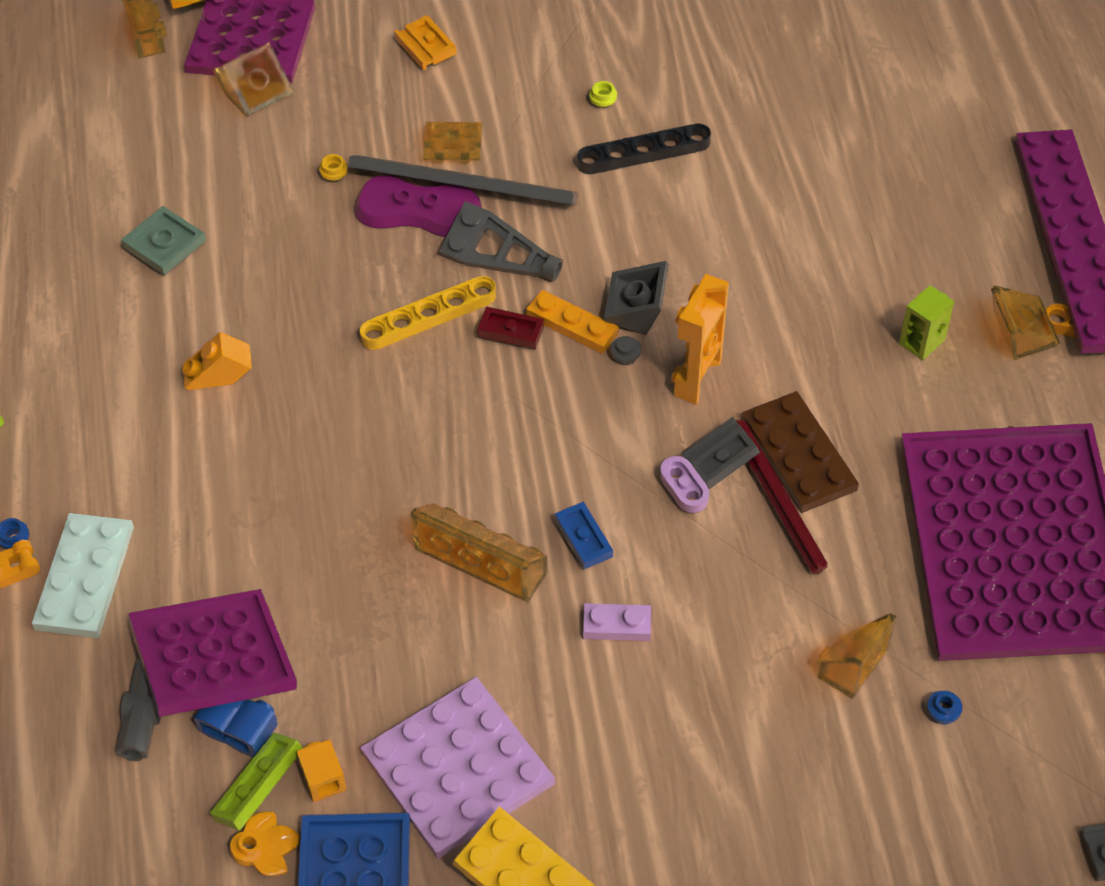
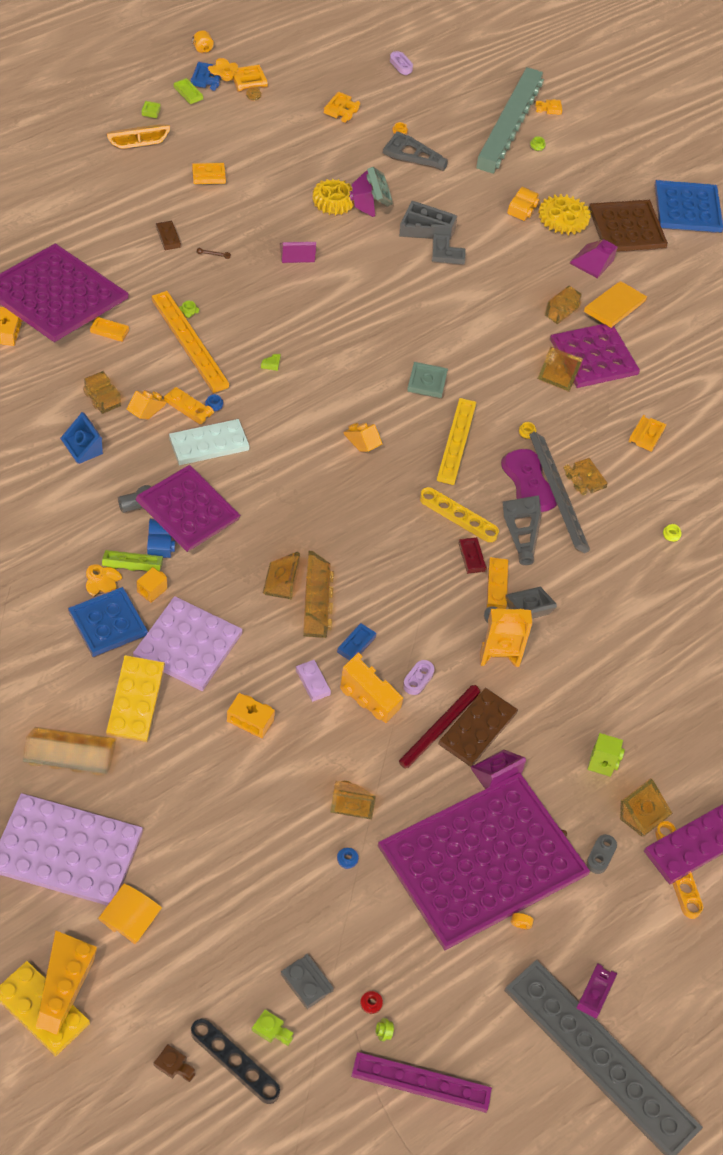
camera: 55 degrees right, 0 degrees up
(299, 256) = (456, 441): none -> yellow plate
(412, 578) = (282, 576): none -> clear yellow slope
(642, 730) = (250, 715): none -> light orange brick
(654, 140) = (649, 577): black beam -> none
(680, 552) = (368, 690): none -> light orange wedge
(721, 452) = (448, 685): dark grey plate -> none
(882, 455) = (498, 768): none -> magenta slope
(1060, 400) = (601, 852): none -> dark grey plate

